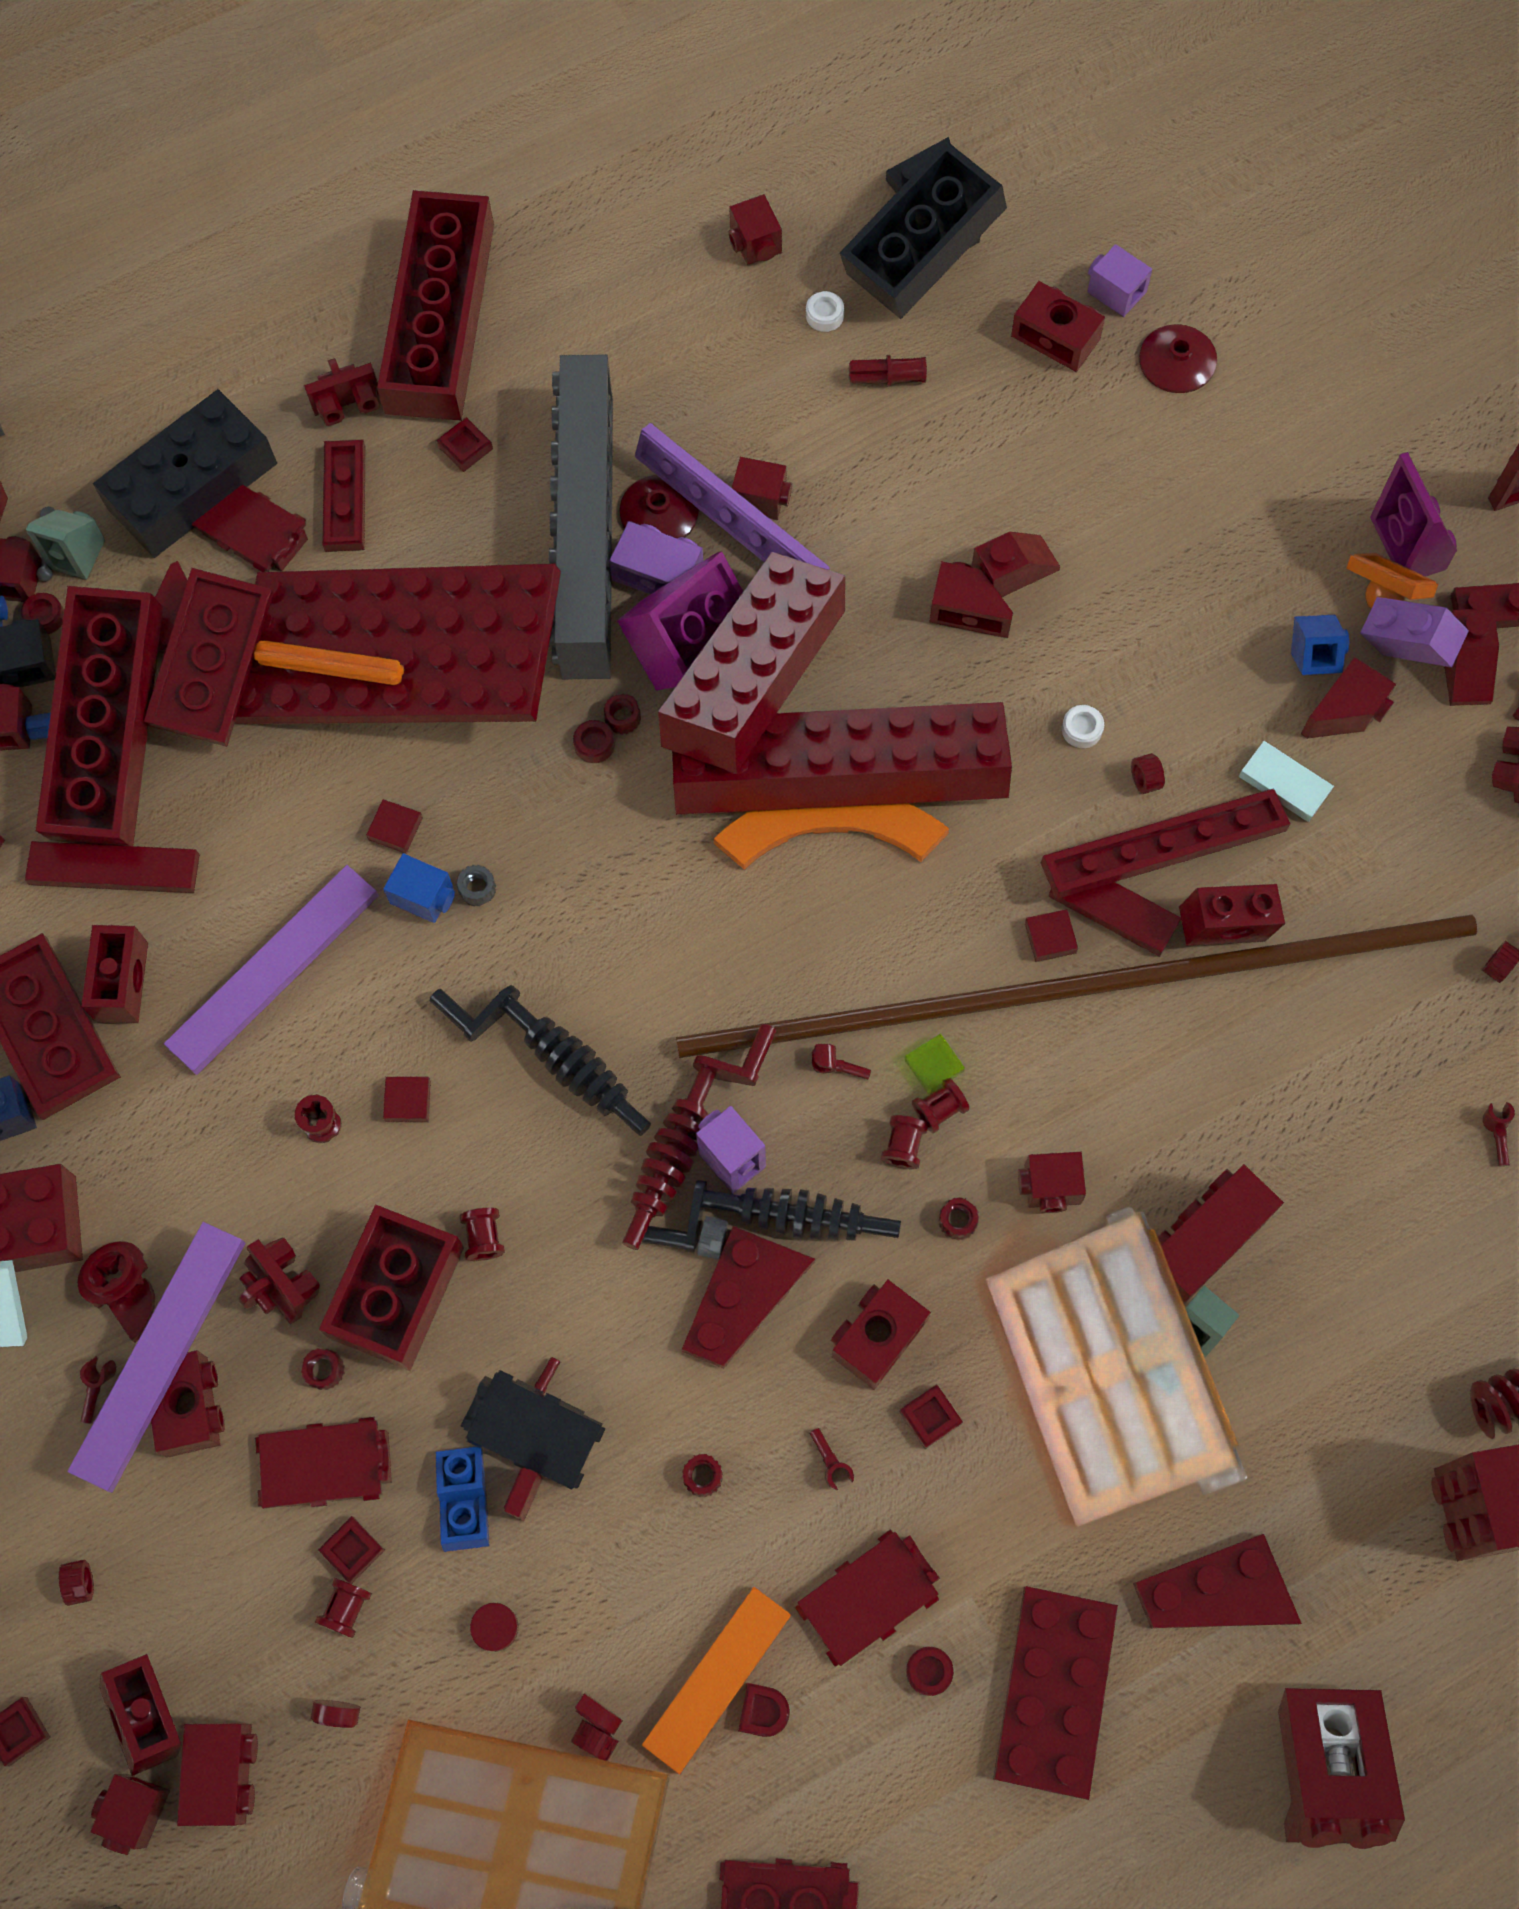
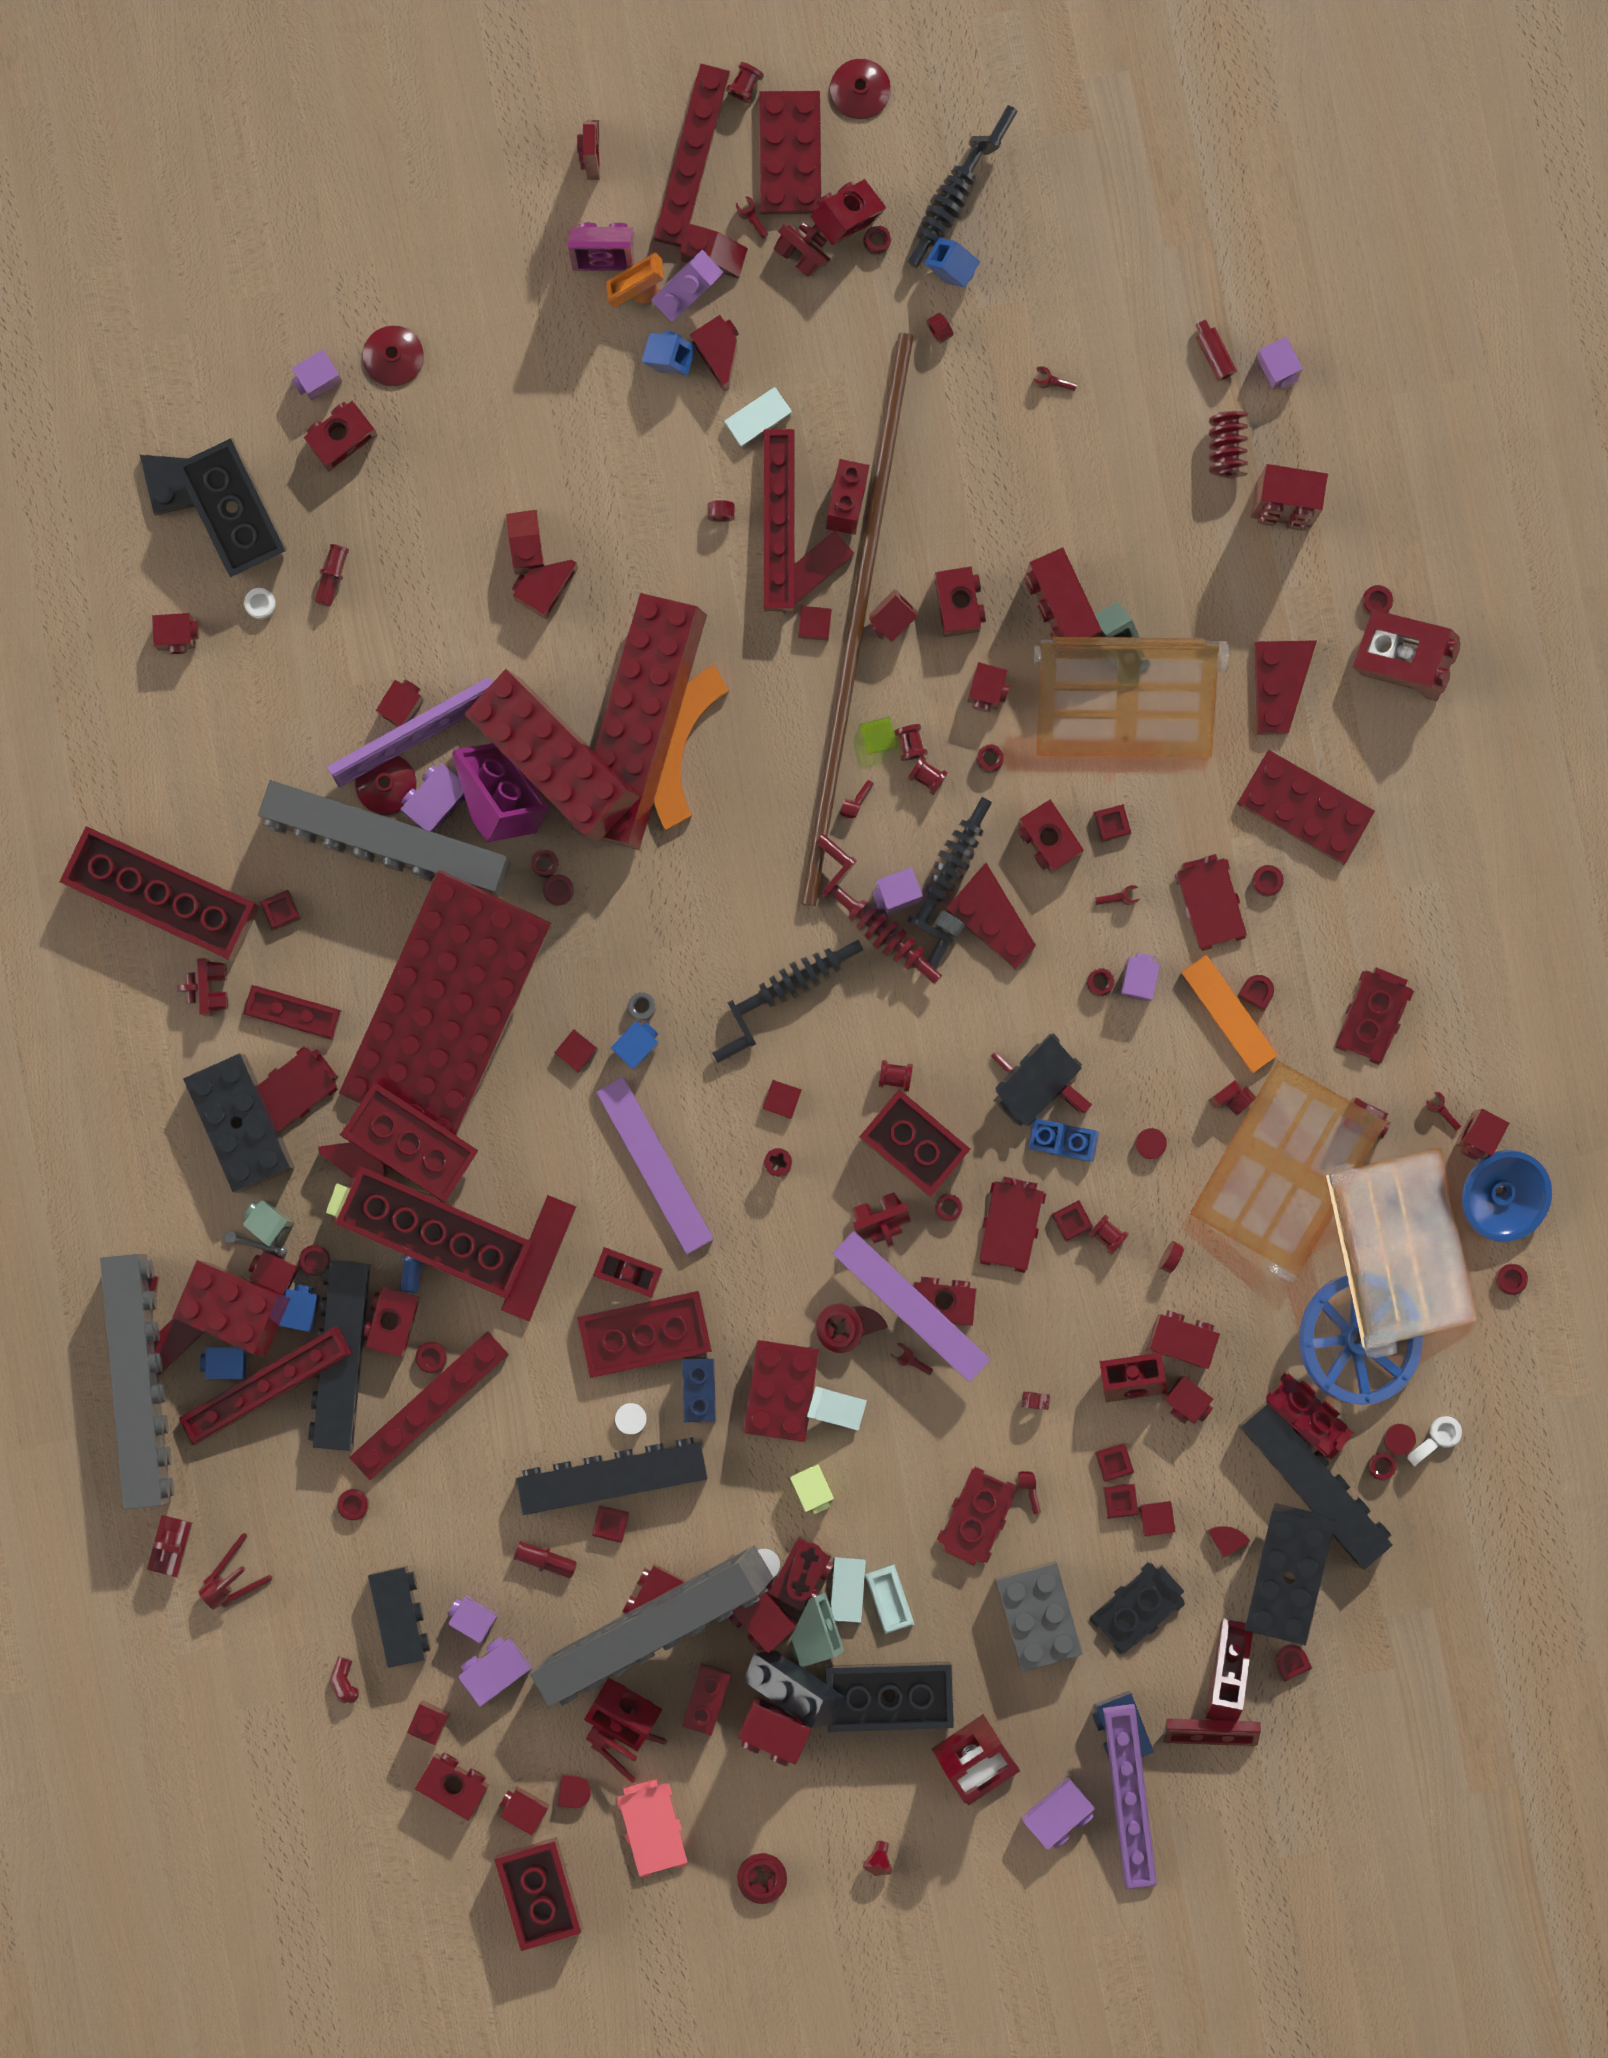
camera: 75 degrees left, 15 degrees up
(329, 662) = (447, 1057): orange axle -> none
(725, 1528) = (1140, 977): none -> medium lavender brick
(1082, 726) = (667, 541): white tile -> none
(1098, 1022) = (892, 616): none -> dark red brick
(1169, 1085) = (953, 619): none -> dark red brick
(1399, 1695) = (1377, 598): none -> dark red tile

